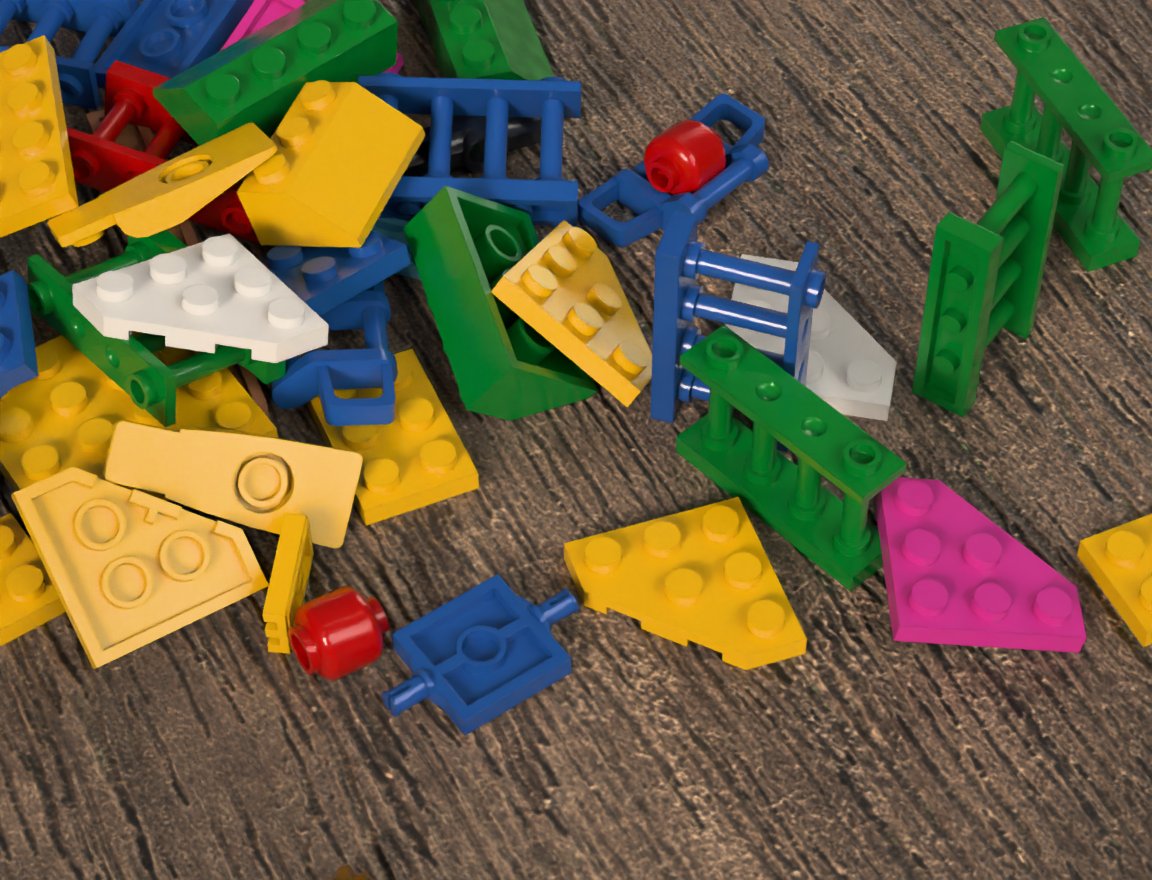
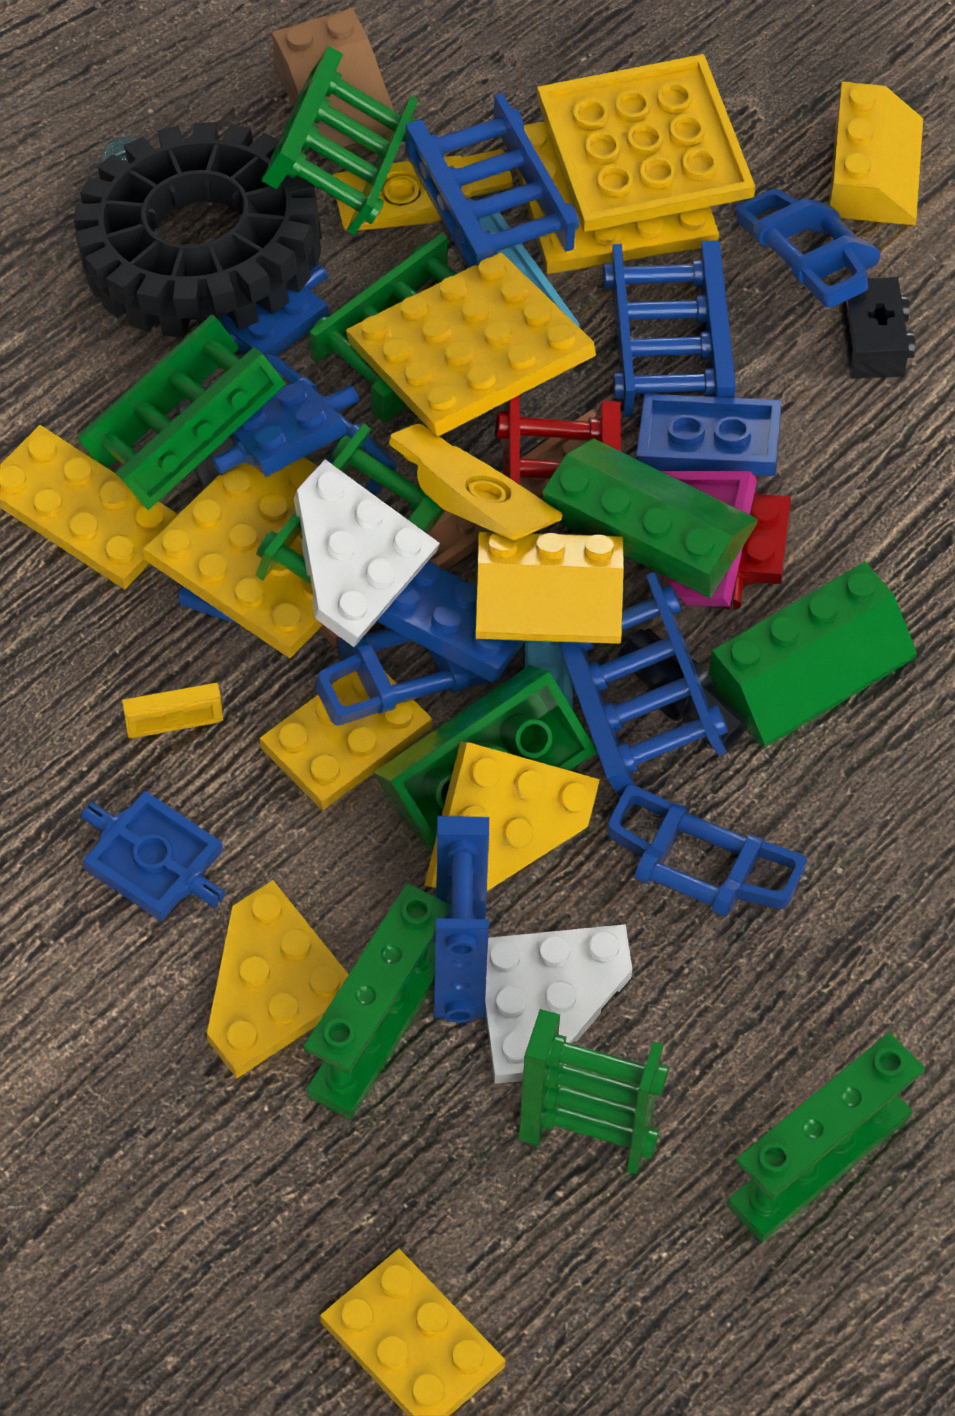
camera: 70 degrees right, 10 degrees up
(132, 561) = (144, 603): yellow plate -> none
(239, 475) = (236, 641): yellow piece -> none
(338, 633) = (133, 756): red head -> none
(684, 157) = (700, 847): red head -> none
(965, 578) = (332, 1168): dark pink plate -> none

